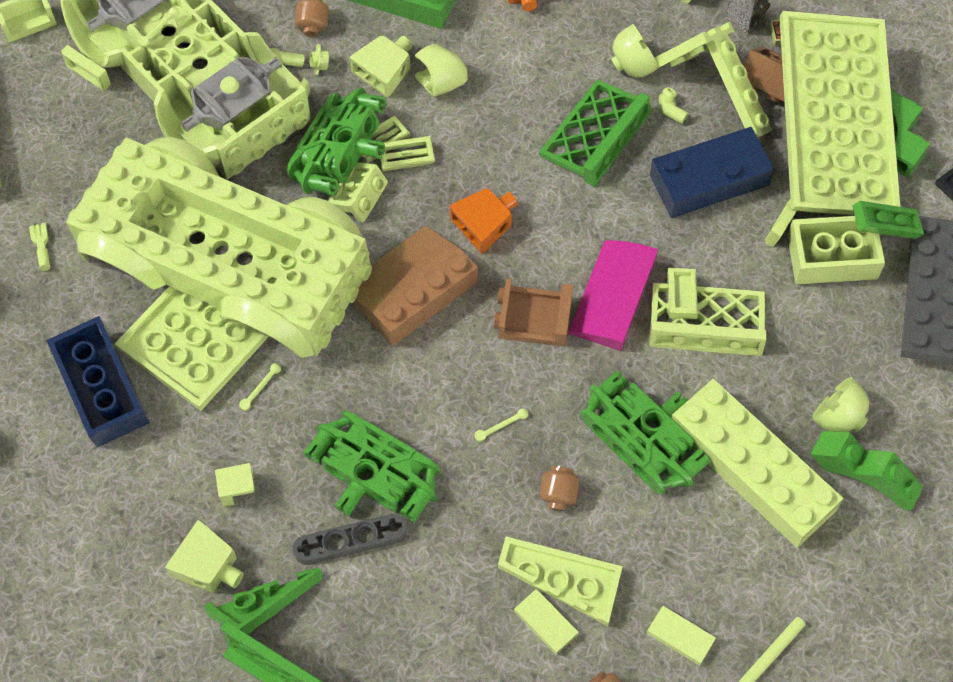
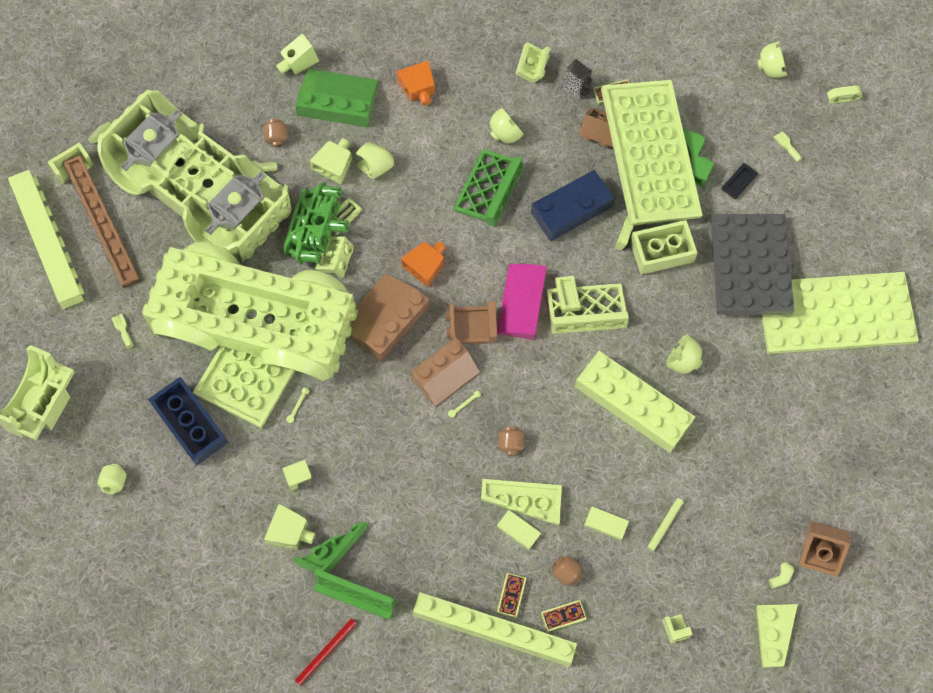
camera: 15 degrees left, 5 degrees up
(48, 98) = (101, 221): none -> medium nougat tile
(85, 68) = (123, 196): yellowish green tile -> none
(319, 59) = (287, 164): yellowish green plate -> none
(349, 534) = (379, 496): dark grey beam -> none
(360, 453) = (400, 439): bright green piece -> none
(401, 164) = (366, 230): yellowish green tile -> none
(480, 374) = (444, 372): none -> medium nougat slope
(644, 449) = (561, 404): bright green piece -> none
(669, 107) = (535, 162): yellowish green arm -> none
(731, 70) = (573, 131): yellowish green bracket -> none
(879, 469) = (715, 393): bright green arch -> none
(887, 219) = (695, 223): bright green plate -> none

